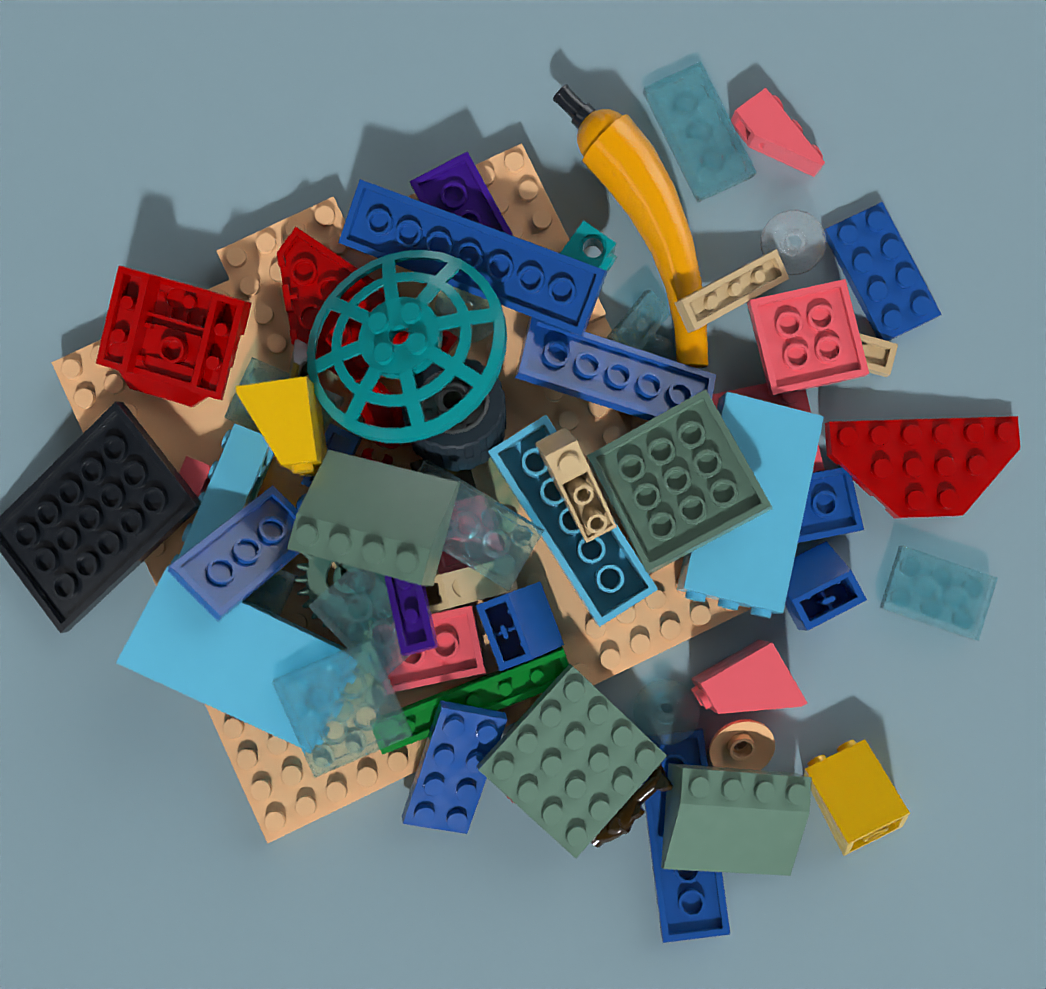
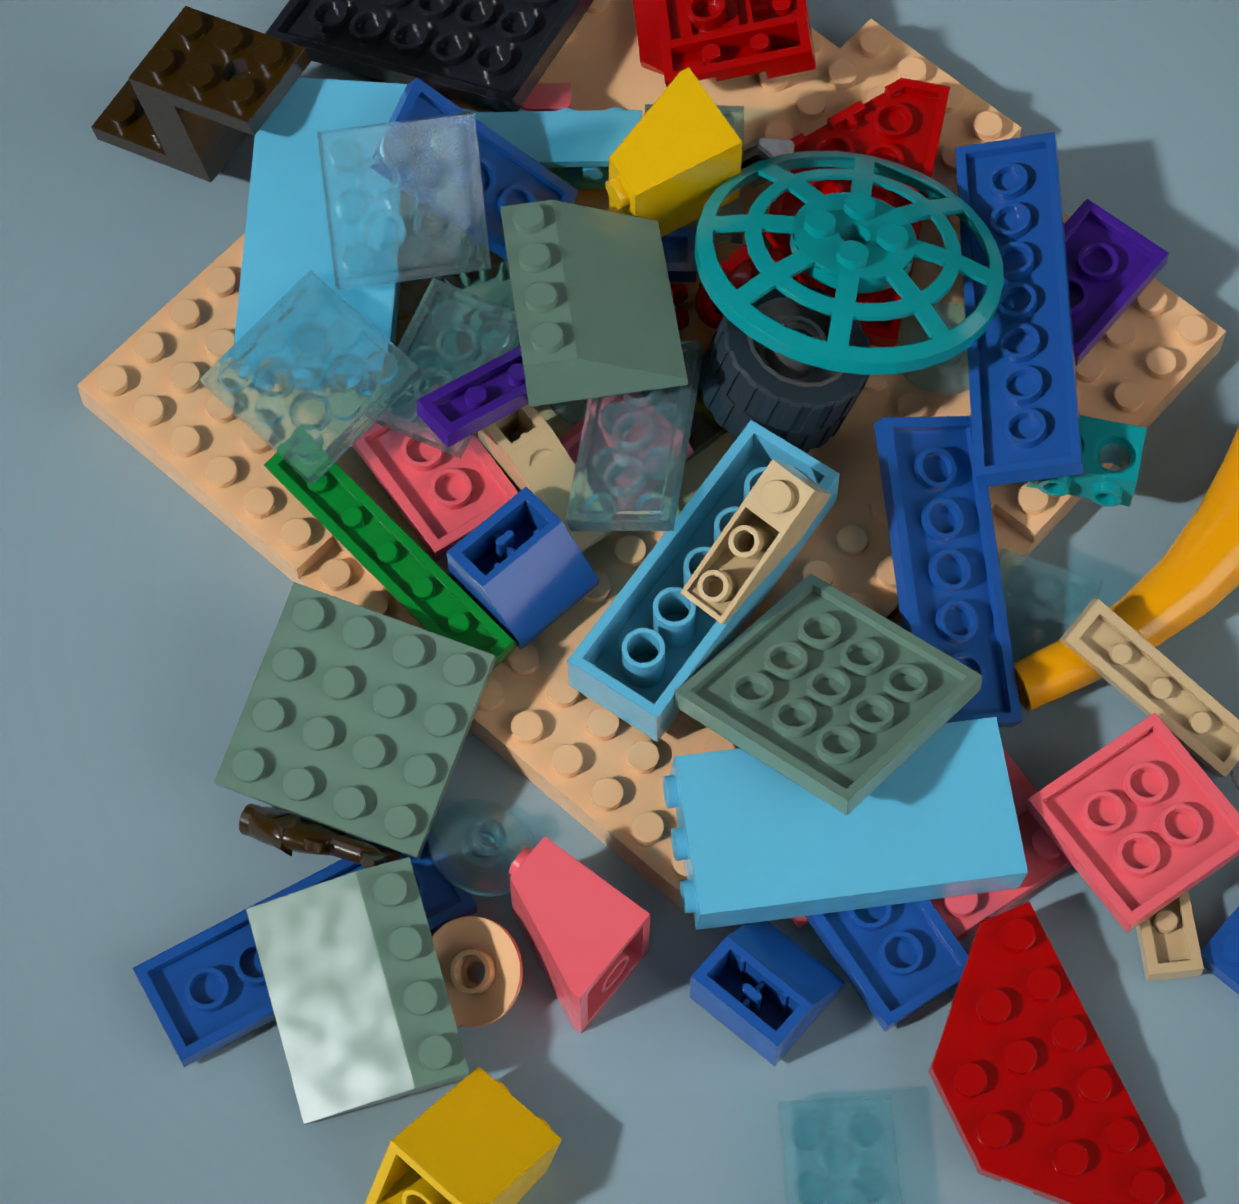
camera: 65 degrees right, 20 degrees down
(100, 696) = (195, 93): none -> dark brown bracket
(254, 608) = (404, 200): none -> clear light blue plate
(447, 776) = (242, 575): blue plate -> none

